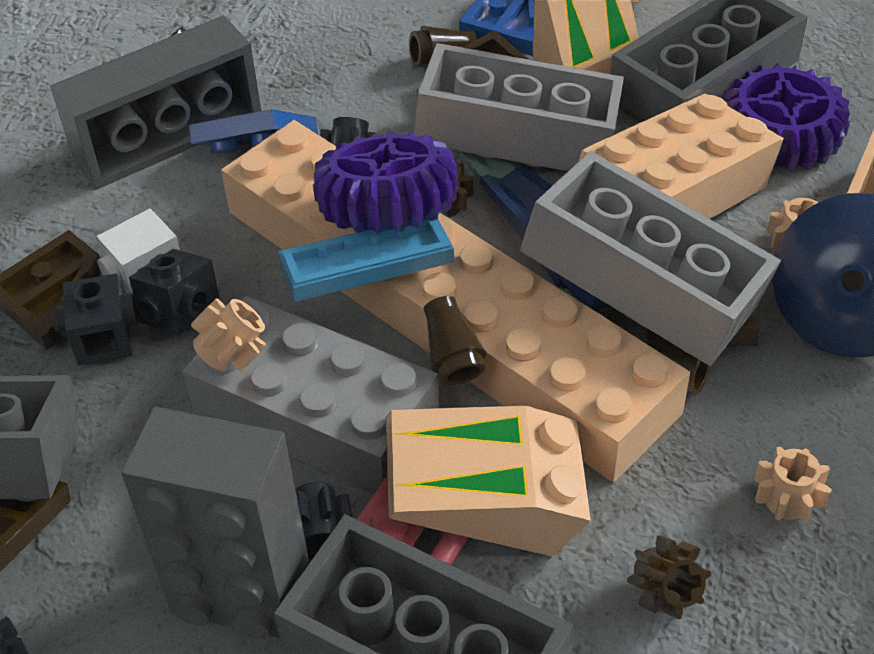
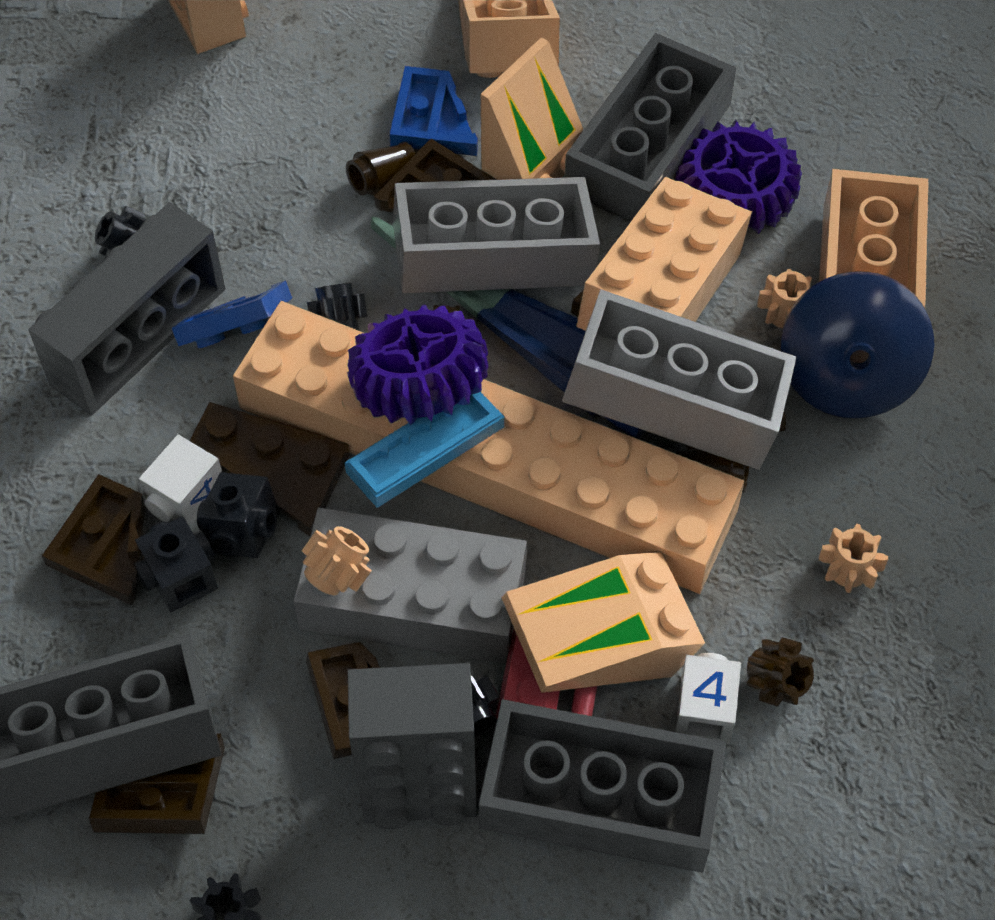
camera: 20 degrees left, 10 degrees up
(241, 255) = (297, 462): none -> dark brown wing
(452, 343) = (530, 507): dark brown cone -> none
(580, 581) = (708, 696): none -> white brick

